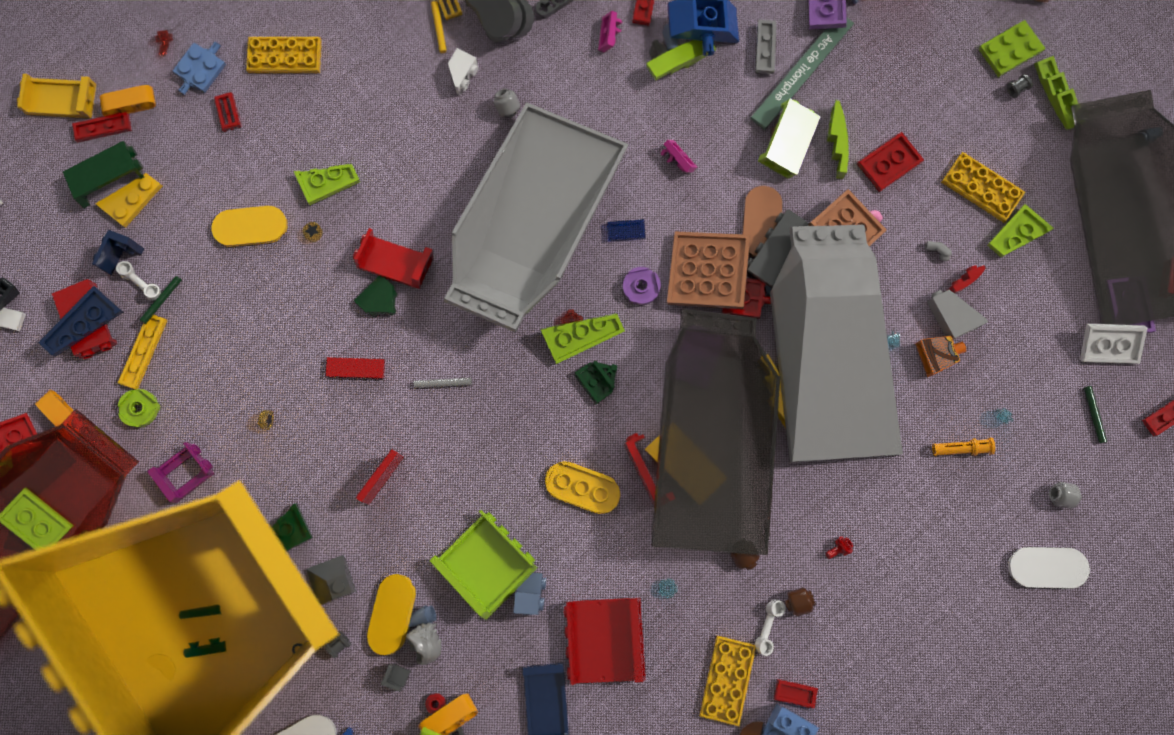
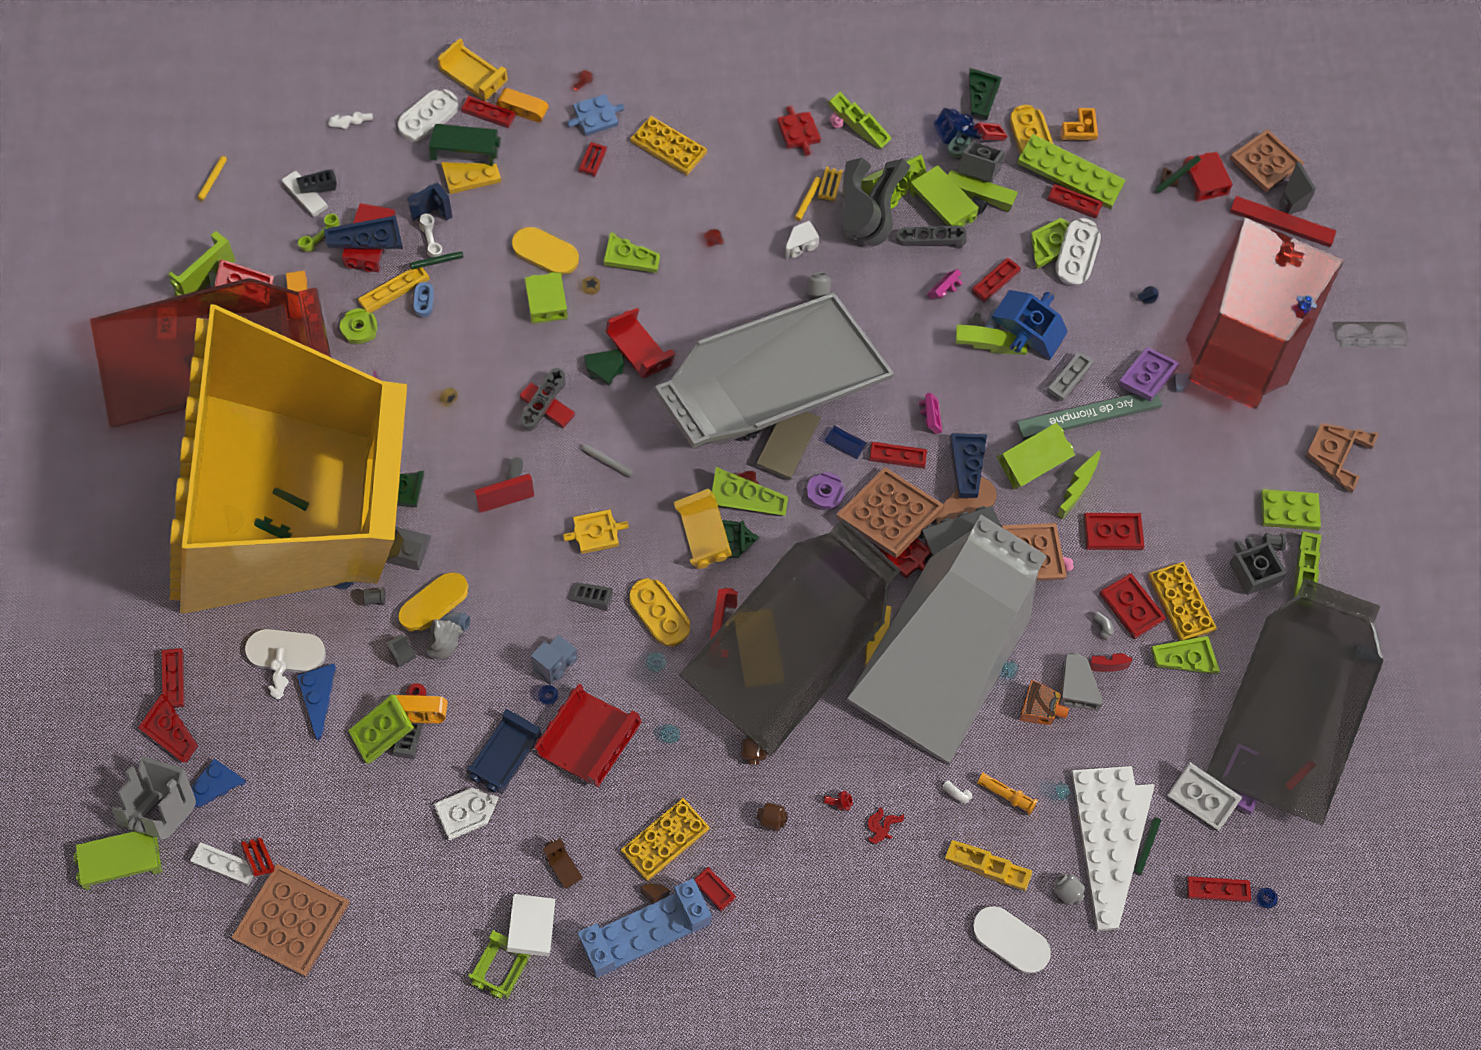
camera: 30 degrees right, 15 degrees down
(34, 361) = (307, 244): none -> lime bar
(49, 159) = (420, 119): none -> white tile
(177, 345) = (423, 301): none -> medium blue plate
(282, 270) = (546, 297): none -> lime panel
(349, 367) = (539, 397): none -> dark grey beam
(373, 450) = (515, 468): none -> dark grey bar
(384, 111) = (713, 233): none -> clear red plate
(480, 454) = (596, 531): none -> yellow plate
(485, 565) = (536, 613): lime panel -> none
(534, 514) = (596, 603): none -> dark grey slope
(538, 626) = (548, 689): none -> clear blue plate
(569, 391) = (704, 528): none -> yellow panel
(584, 272) = (788, 444): none -> dark tan tile
(616, 529) = (656, 656): none -> clear light blue plate
(676, 212) = (898, 455): none -> red tile
(738, 181) = (968, 462): none -> dark blue wing
(773, 609) = (746, 809): white bar -> none
(882, 549) = (875, 827): none -> red piece
(932, 475) = (954, 792): none -> white arm
(948, 217) = (1132, 606): none -> red tile
(991, 519) = (988, 865): none -> yellow slope
(1023, 116) = (1257, 566): none -> dark grey hinge
(1057, 416) = (1111, 829): none -> white wing

